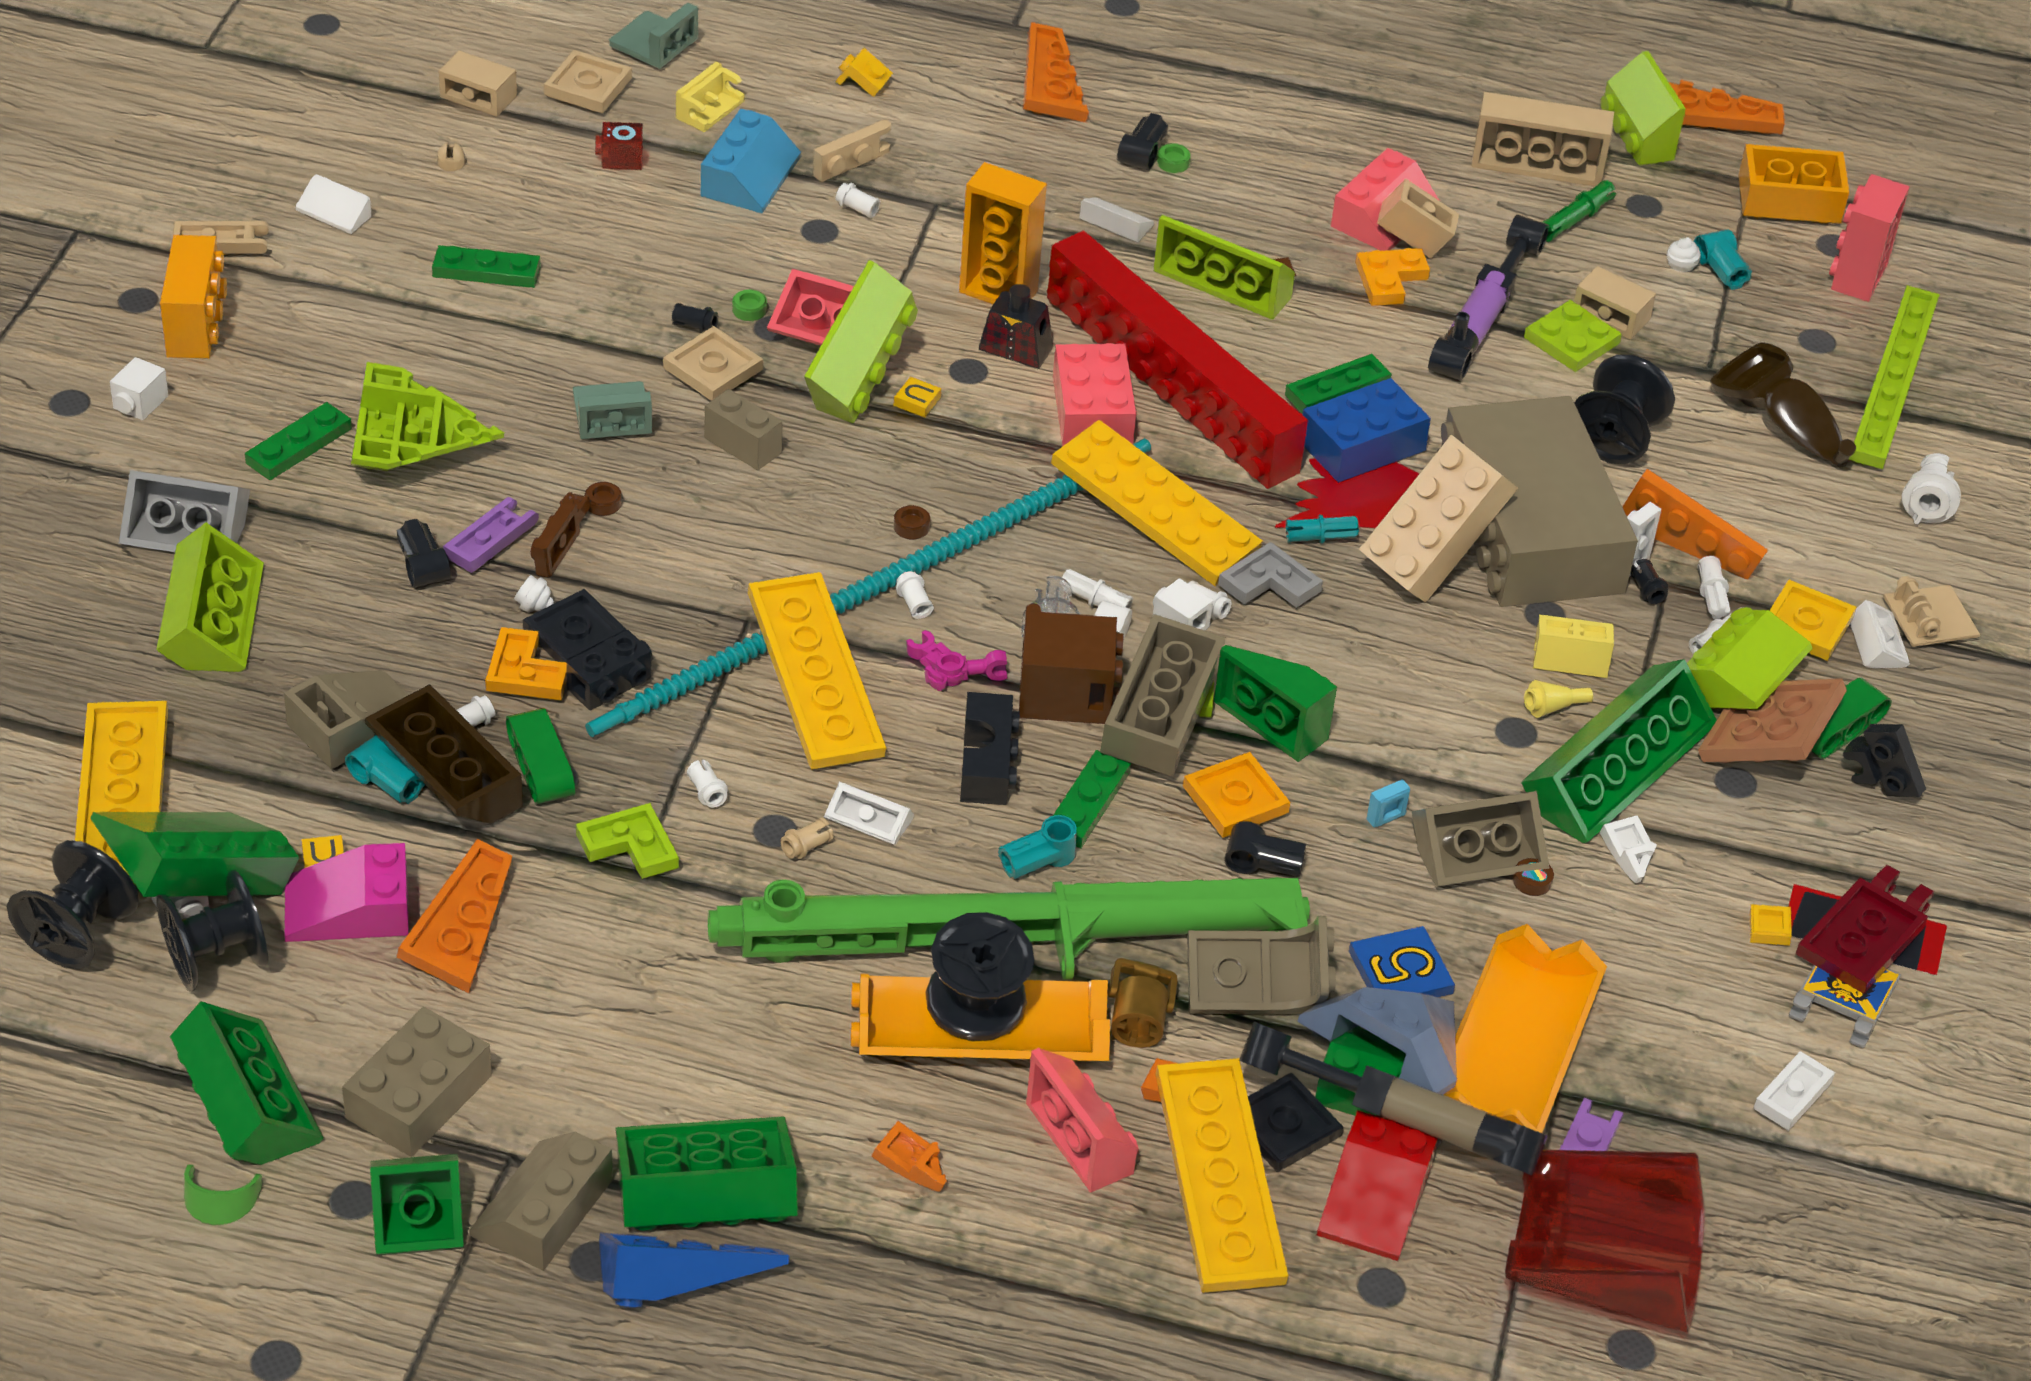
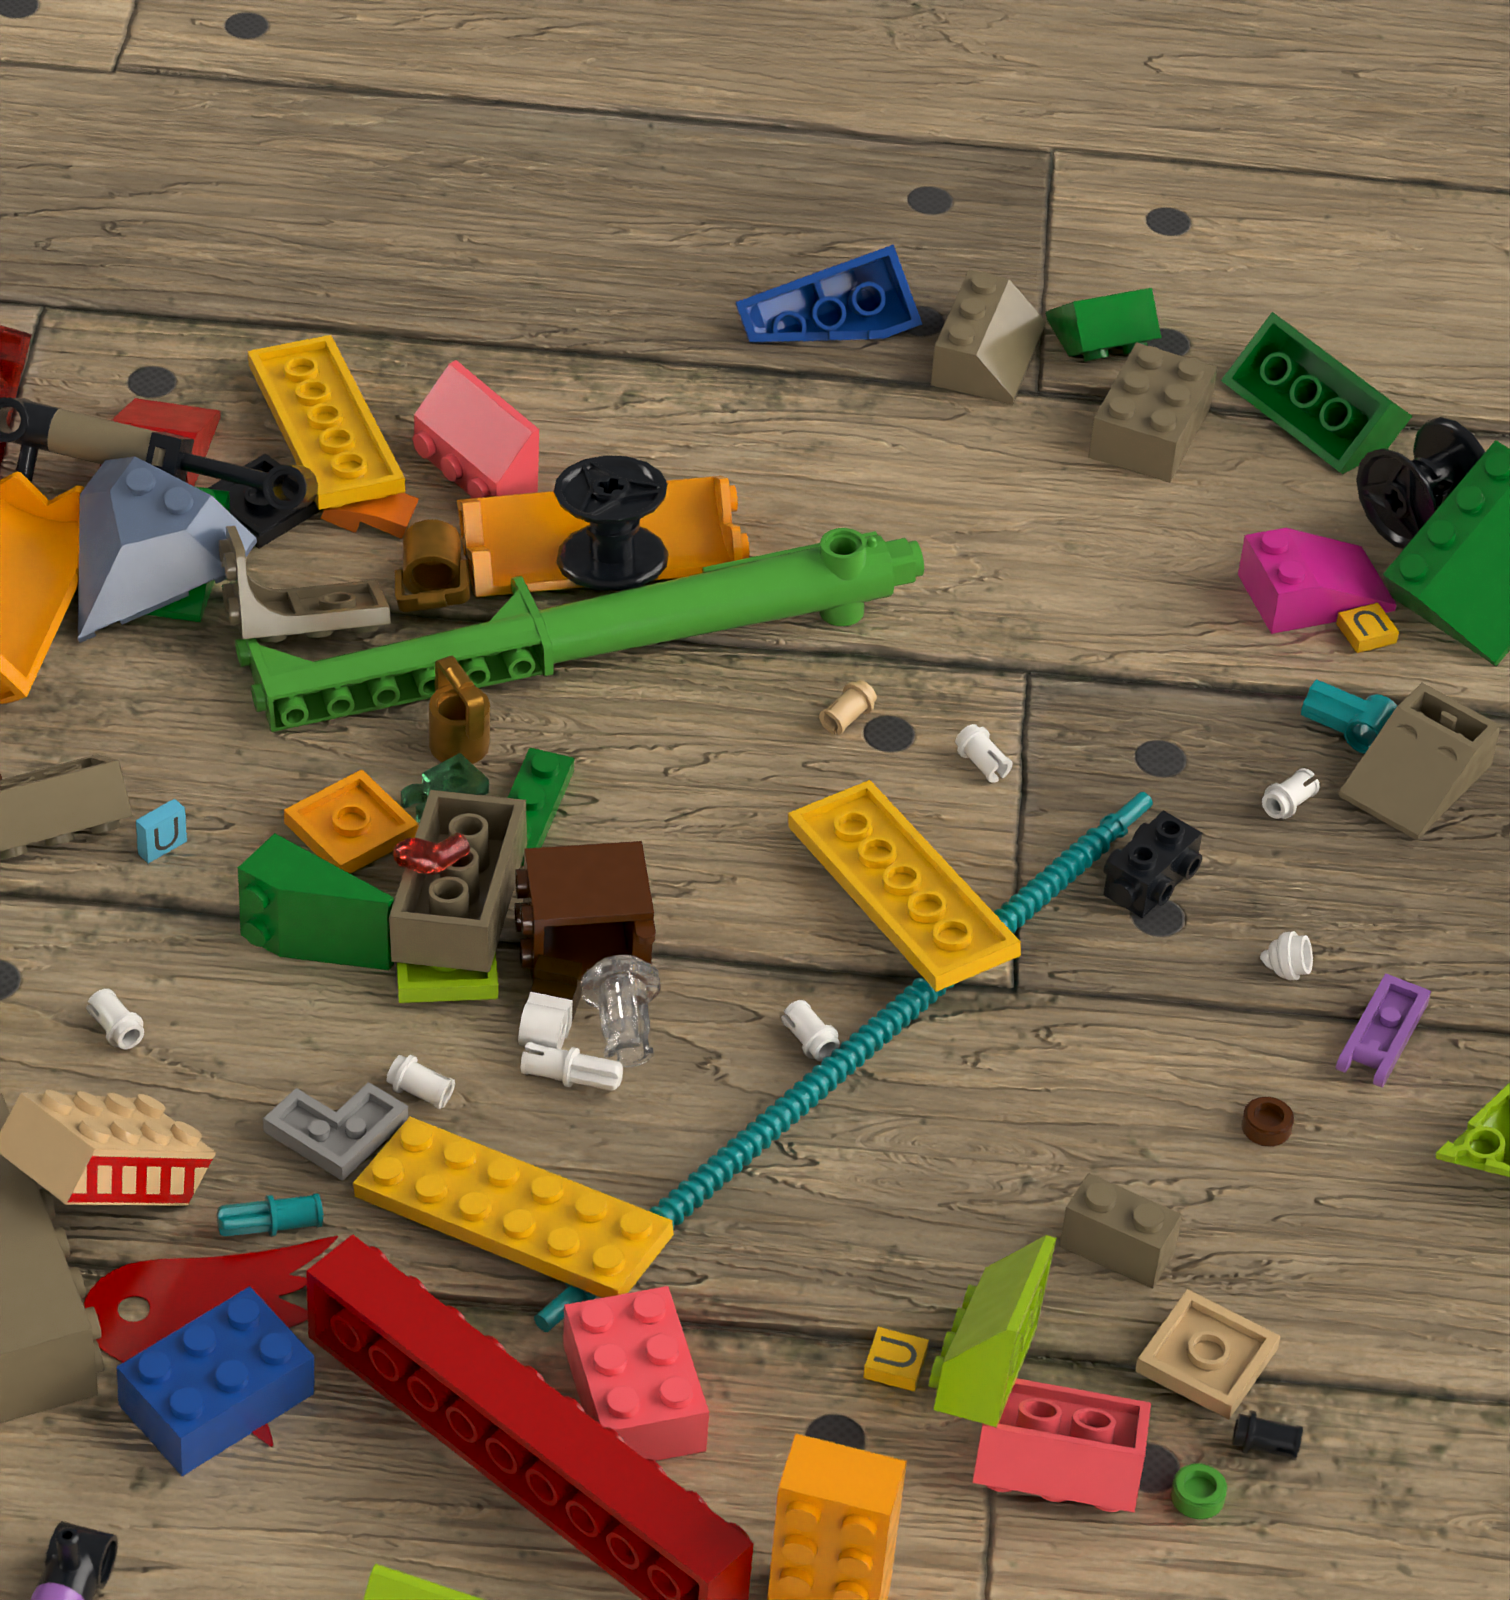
camera: 170 degrees right, 0 degrees up
(219, 1206) = (1298, 305): bright green helmet -> none
(423, 559) = (1447, 975): black piece -> none
(449, 756) = (1284, 707): dark brown slope -> none
(458, 920) = (1190, 576): orange wing -> none
(518, 673) = (1261, 850): light orange plate -> none
(540, 756) = (1186, 753): green beam -> none
(559, 534) = (1297, 1045): reddish brown hinge -> none
(573, 626) = (1218, 930): black tile -> none
(613, 409) = (1312, 1241): sand green bracket -> none
(633, 832) = (1041, 686): lime plate -> none
(706, 1172) = (841, 375): green slope -> none
(868, 813) = (785, 758): white slope -> none
(911, 522) = (845, 1151): reddish brown tile -> none
(911, 1157) = (643, 428): orange slope -> none
(951, 668) = (738, 941): dark pink piece -> none
(988, 769) = (659, 805): black arch -> none
(1018, 328) = (760, 1460): black torso -> none
(1048, 846) = (566, 725): teal piece -> none
(1138, 846) = (457, 714): none -> pearl gold piece
(1153, 815) = (452, 775): none -> clear green plate
(1183, 604) = (453, 1047): white brick -> none
(1187, 666) = (428, 856): none -> clear red arm
(1253, 849) = (322, 758): black piece -> none
(1336, 381) = (260, 1480): green plate -> none
(1402, 963) = (139, 664): blue tile -> none
(1421, 667) = (122, 1027): none -> white pin

